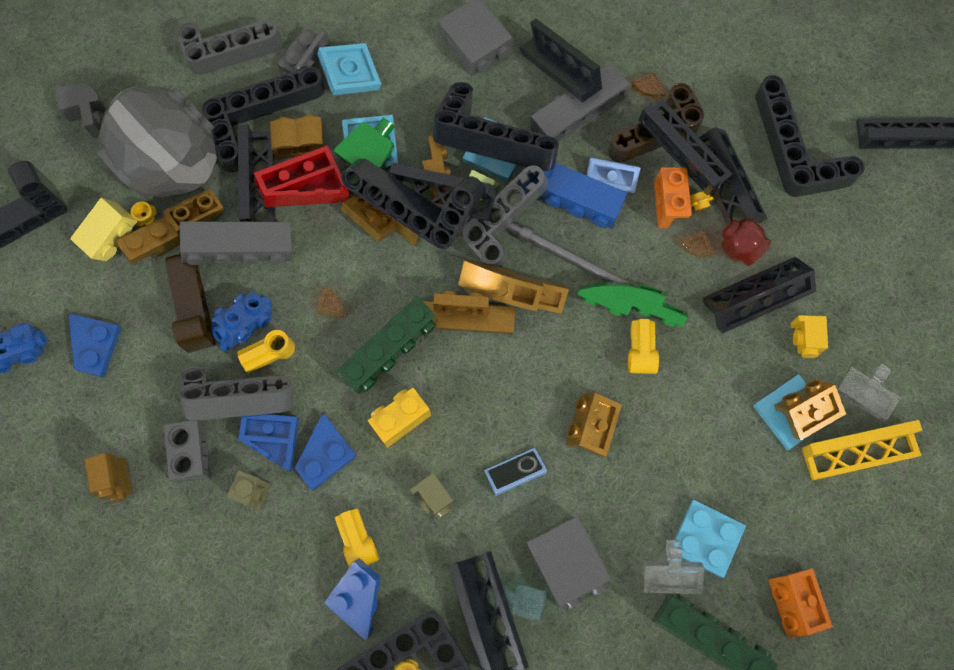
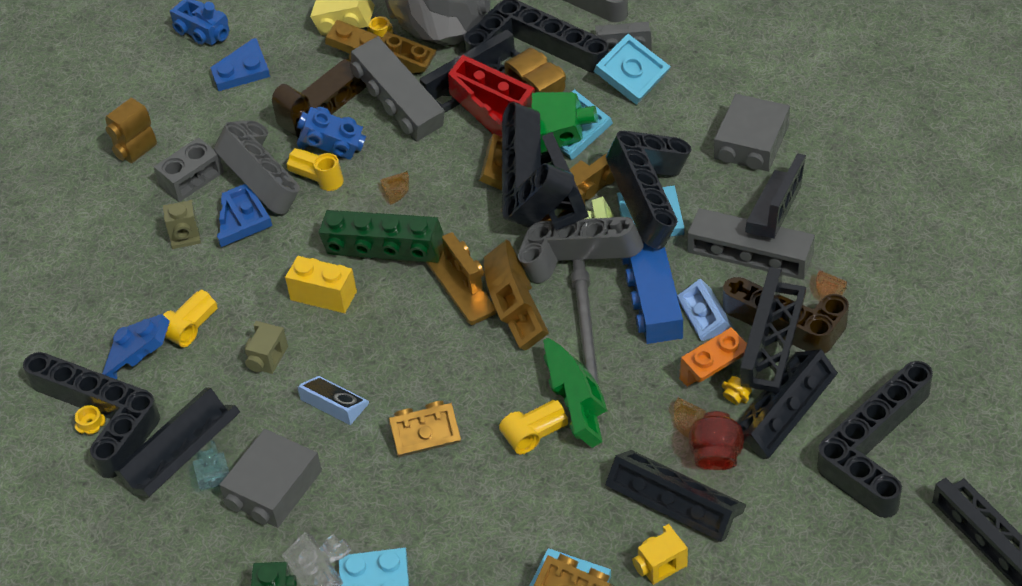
camera: 60 degrees right, 25 degrees down
(323, 454) = (251, 259): blue wing -> none

